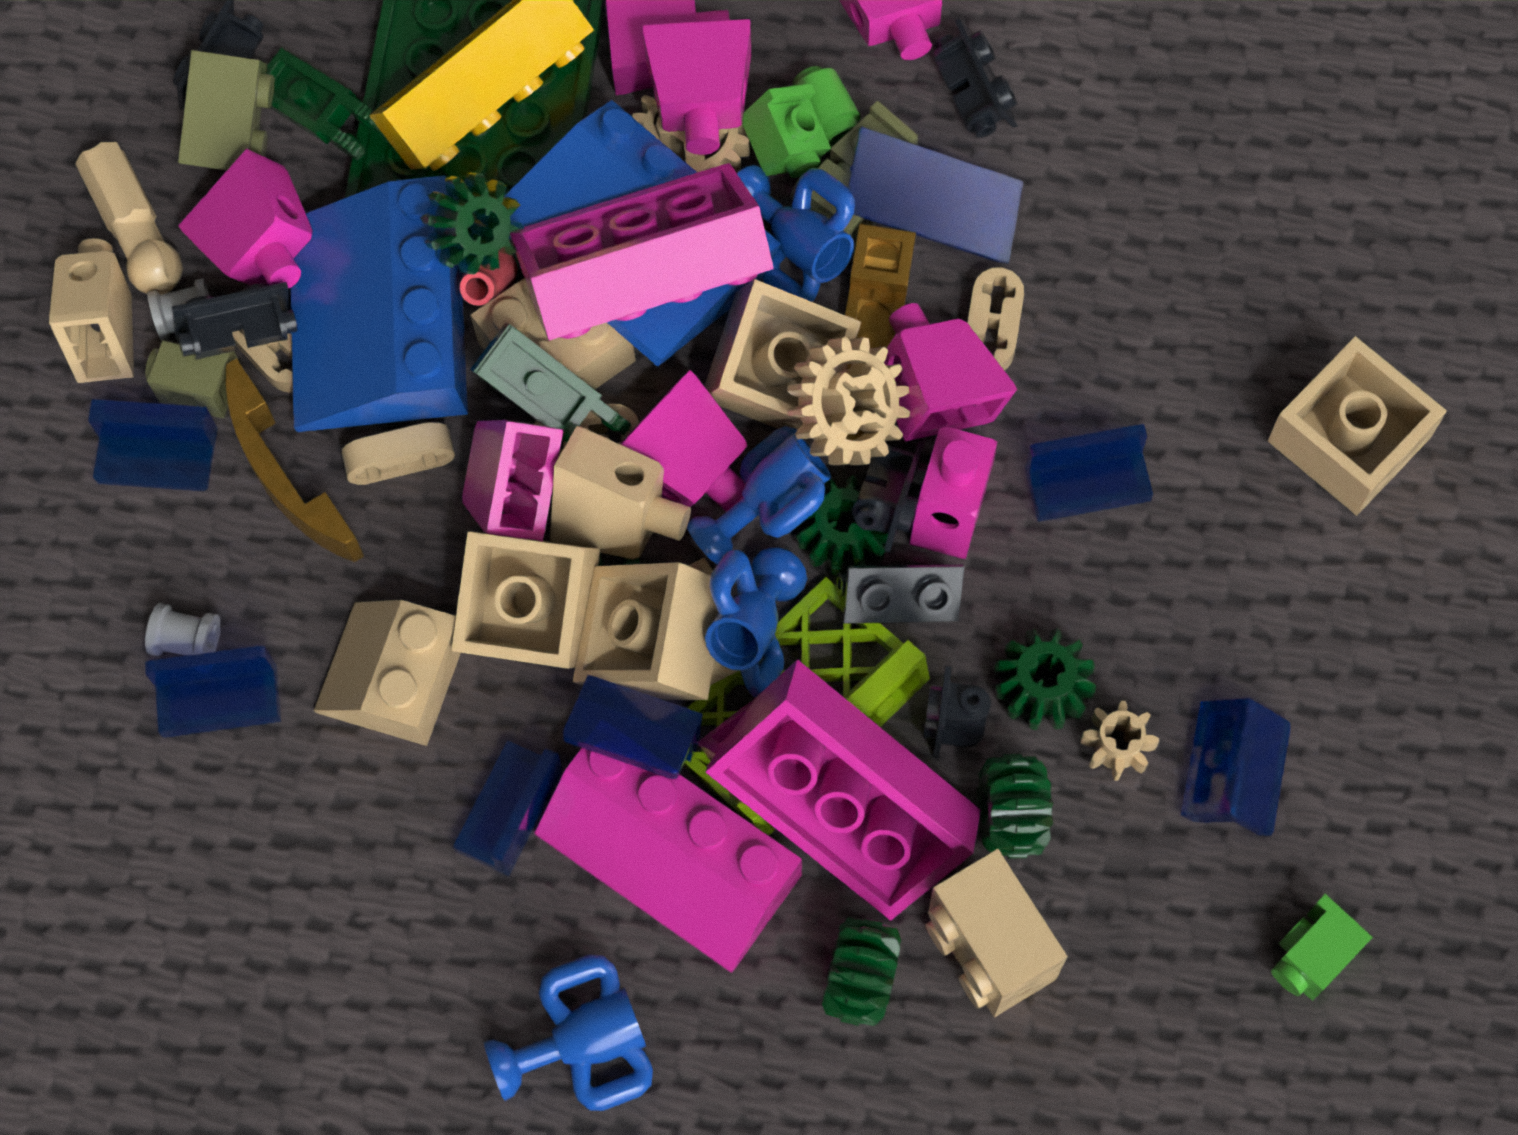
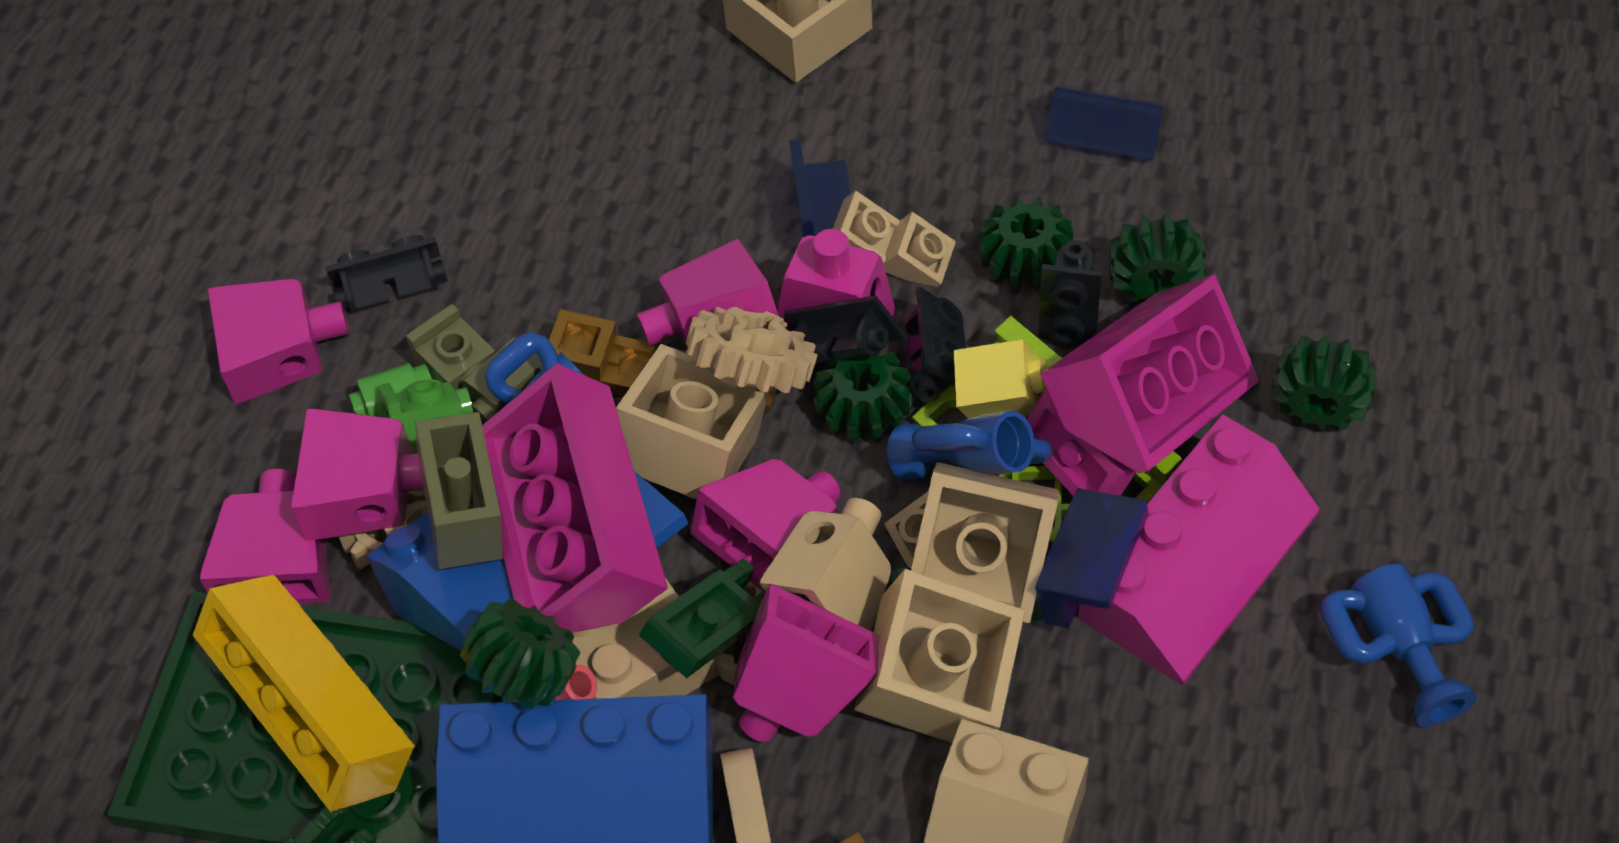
camera: 85 degrees left, 15 degrees down
(508, 807) = (1161, 694): clear blue panel -> none
(636, 148) = (459, 490): none -> olive brick
(780, 486) = (828, 428): blue piece -> none
(835, 639) = (998, 378): none -> light yellow brick
(934, 196) = (514, 298): clear blue piece -> none
(994, 934) = (1288, 271): tan brick -> none
(1008, 321) = (649, 265): tan beam -> none
(1042, 546) = (907, 246): none -> tan slope
(1105, 746) = (1087, 191): tan gear -> none
(1319, 950) = (1275, 66): bright green brick -> none

